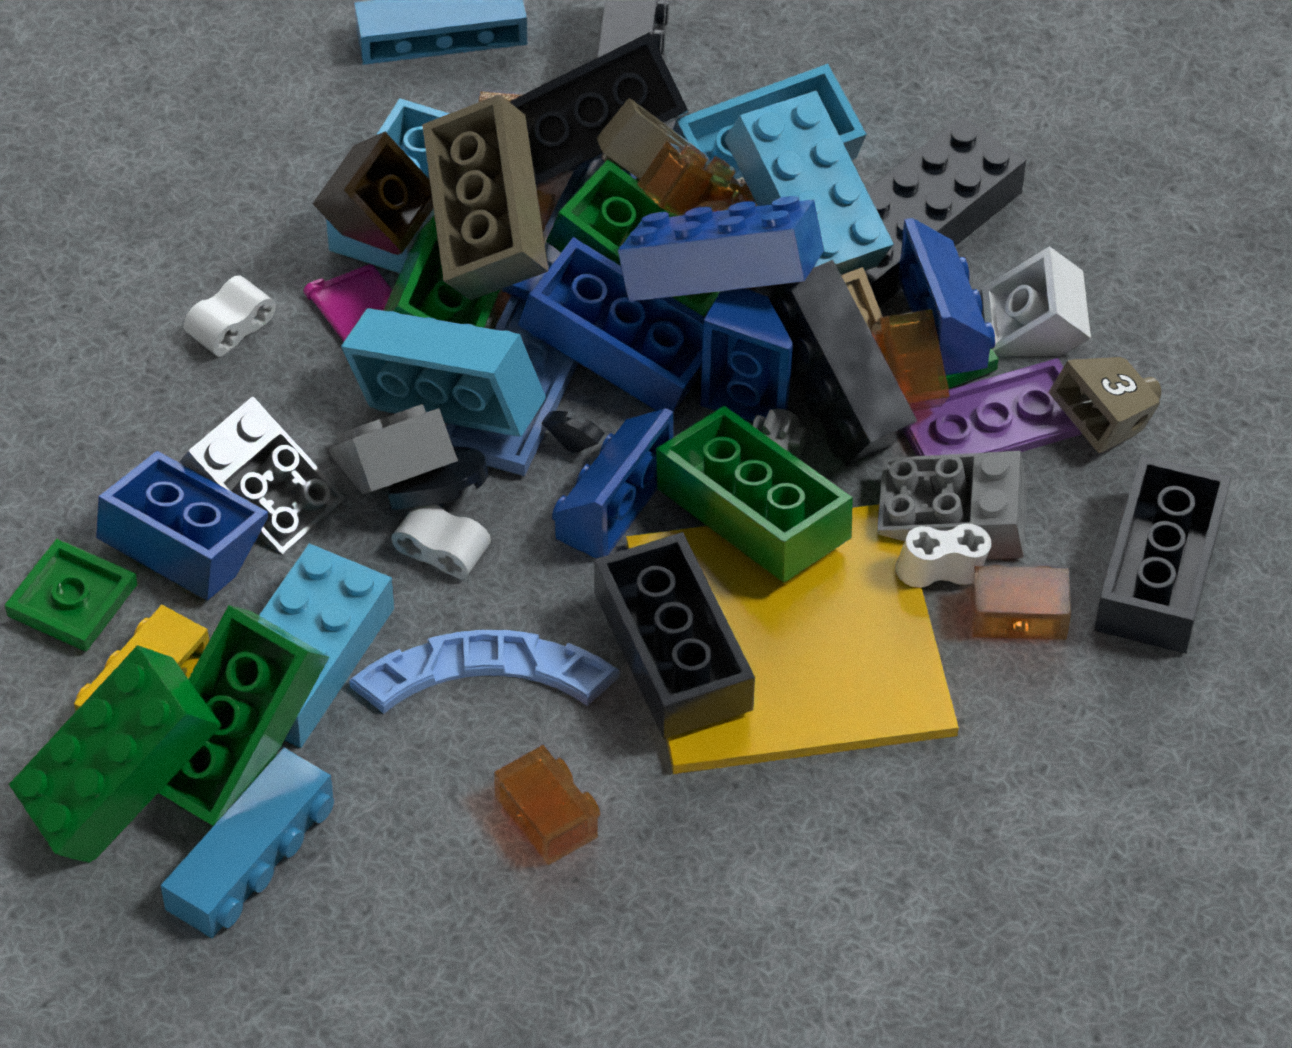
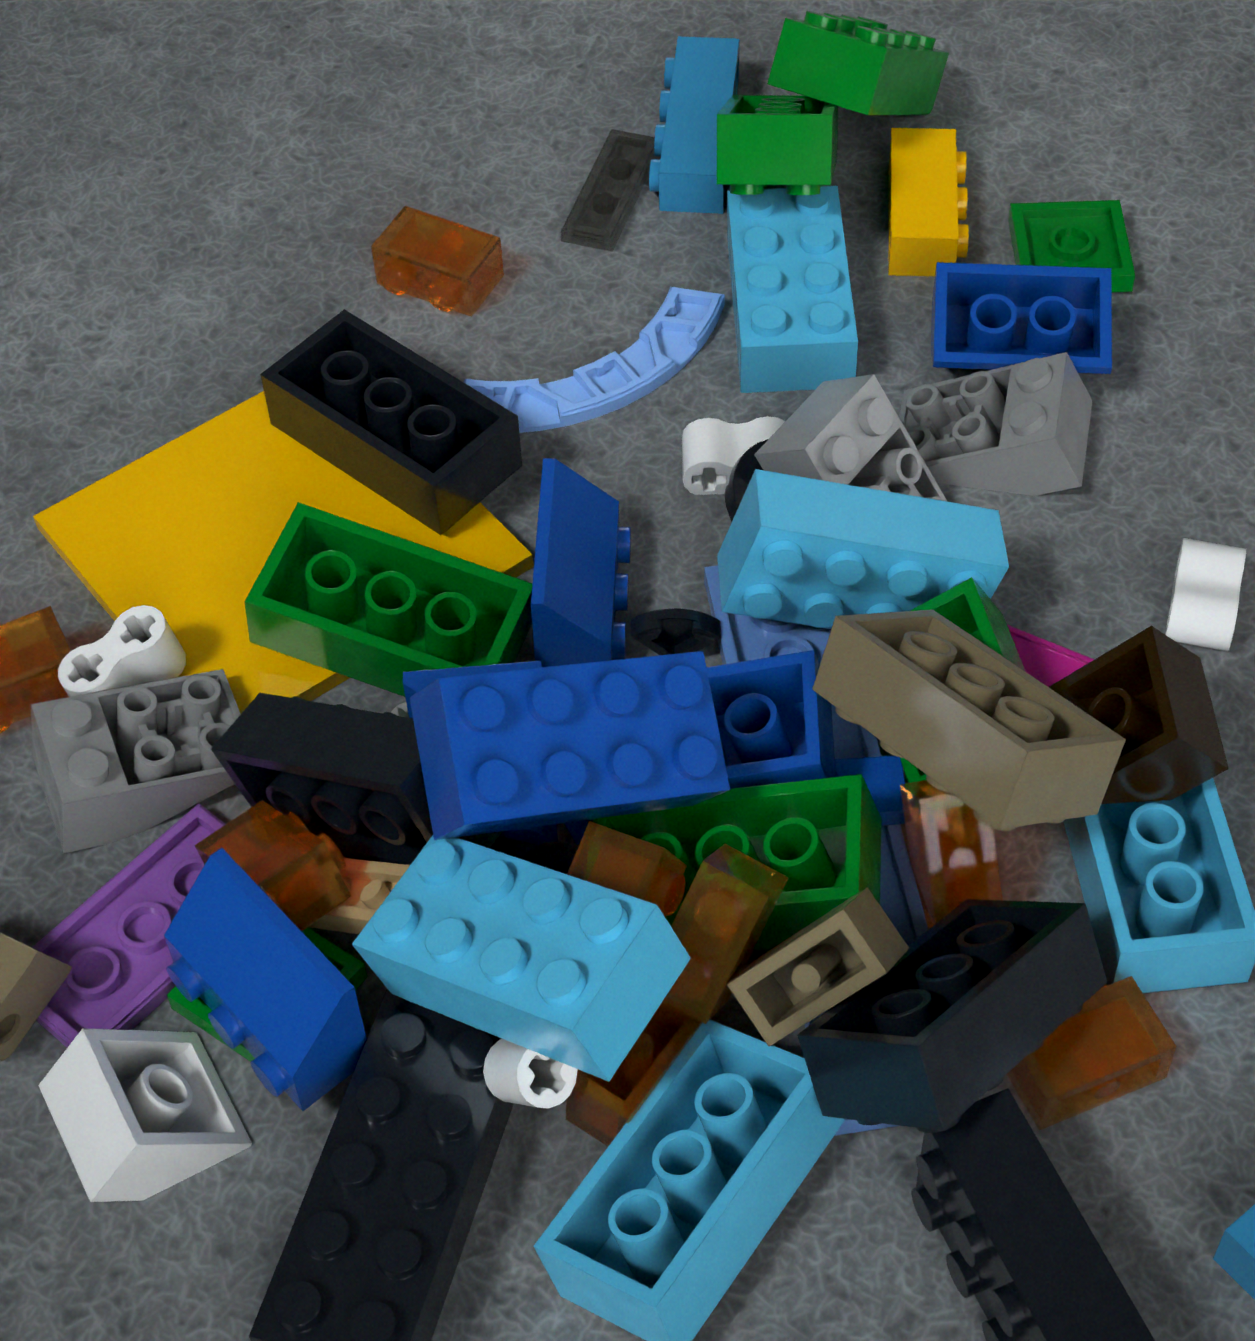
camera: 155 degrees right, 0 degrees up
(357, 832) = (610, 191): none -> clear smoke tile

